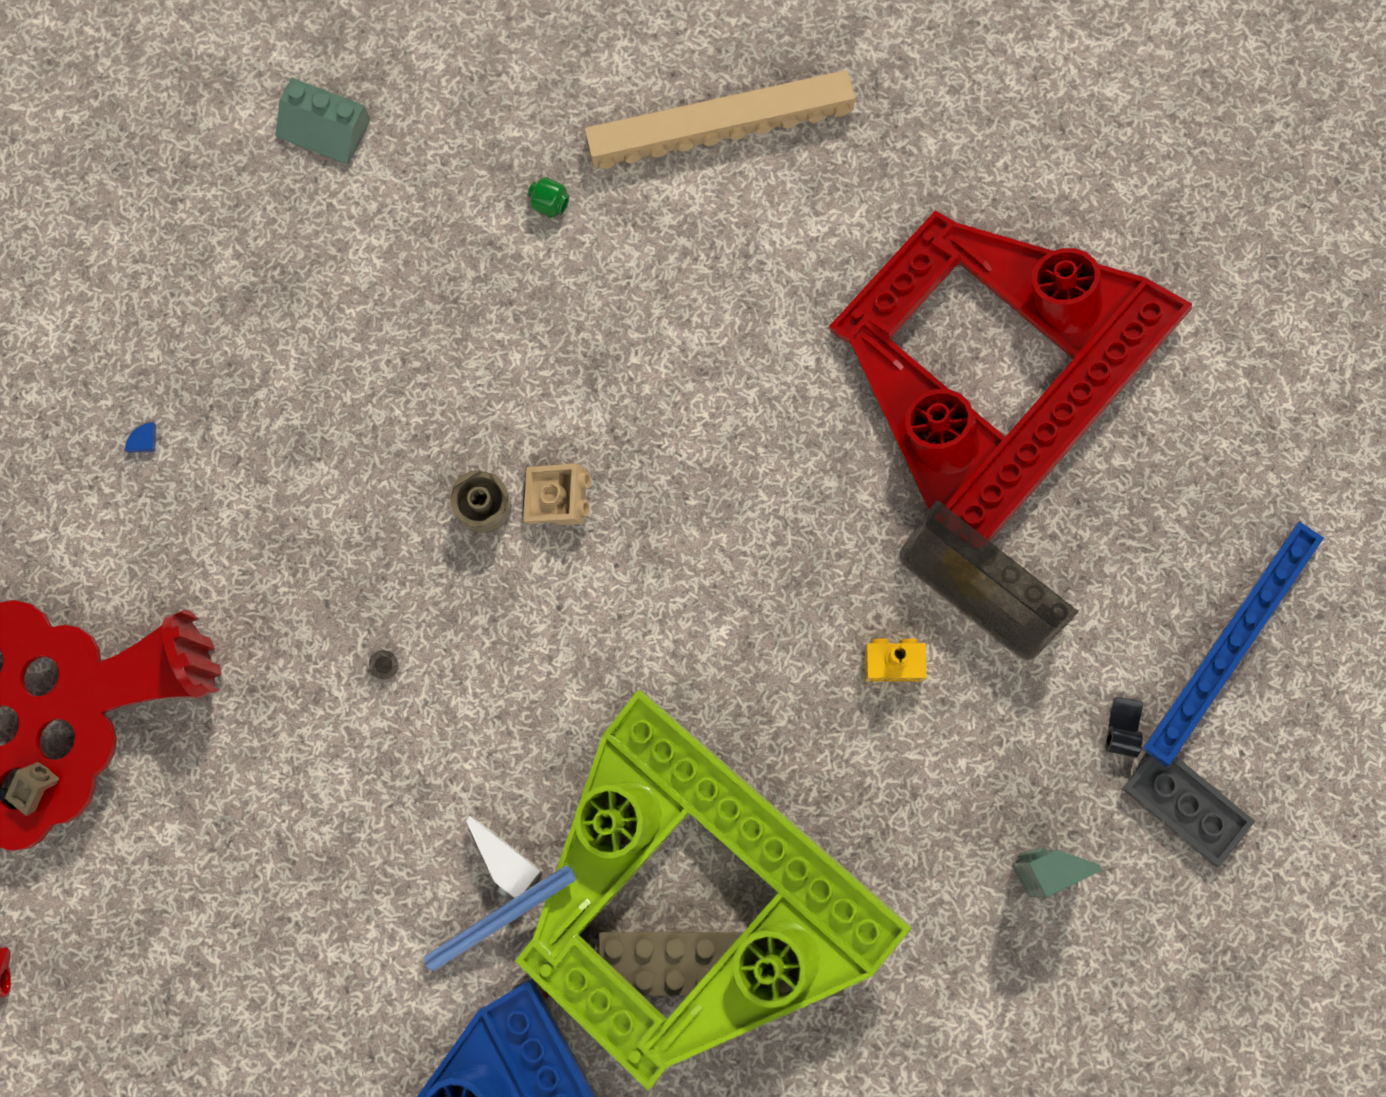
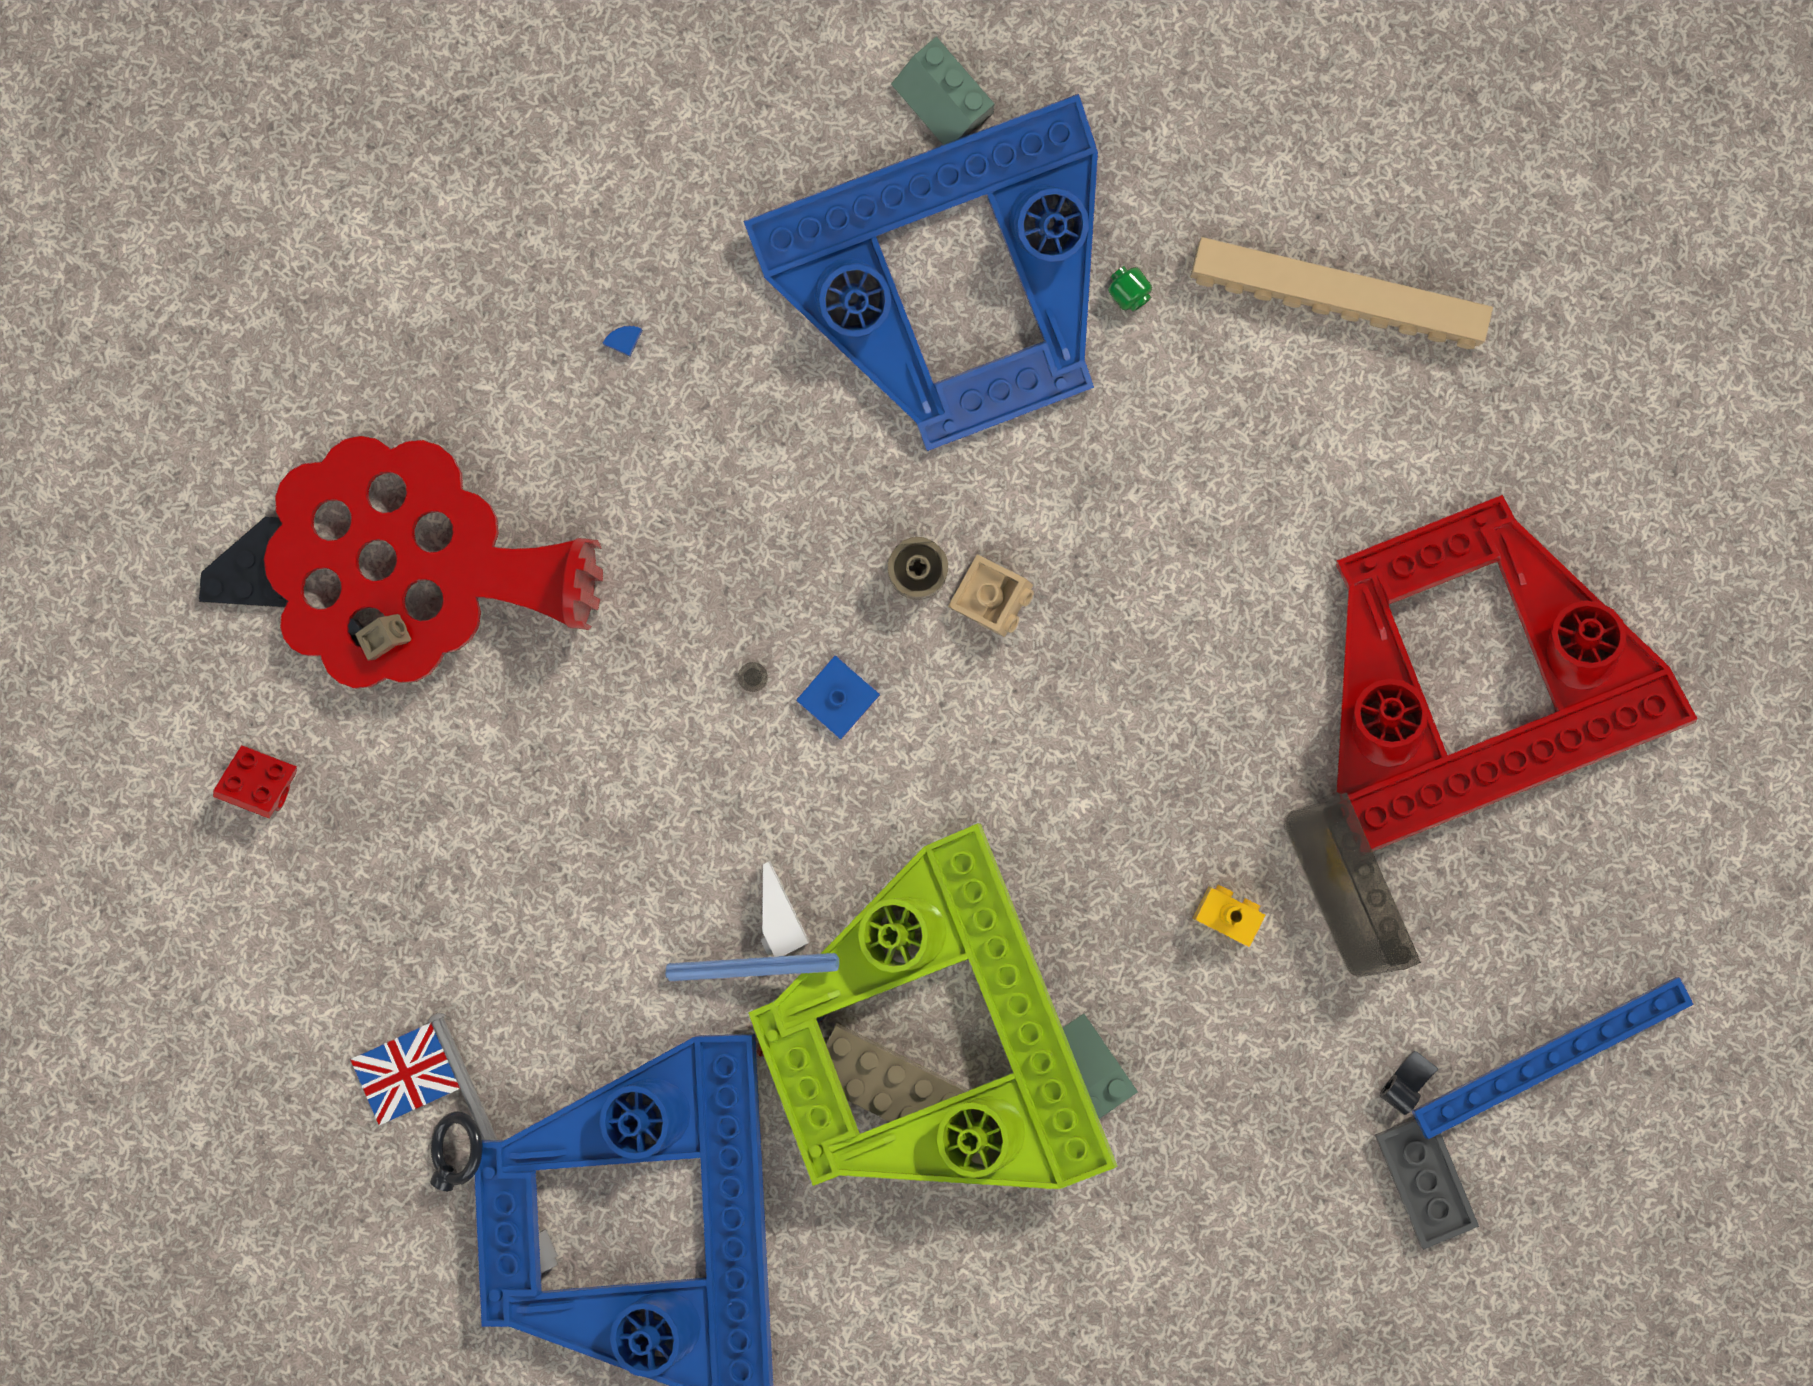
camera: 25 degrees right, 10 degrees up
(283, 260) = (1014, 166): none -> blue wing
(466, 645) = (838, 697): none -> blue plate
(855, 852) = (1099, 1069): none -> sand green slope
(1051, 871) = (1266, 1180): sand green slope -> none

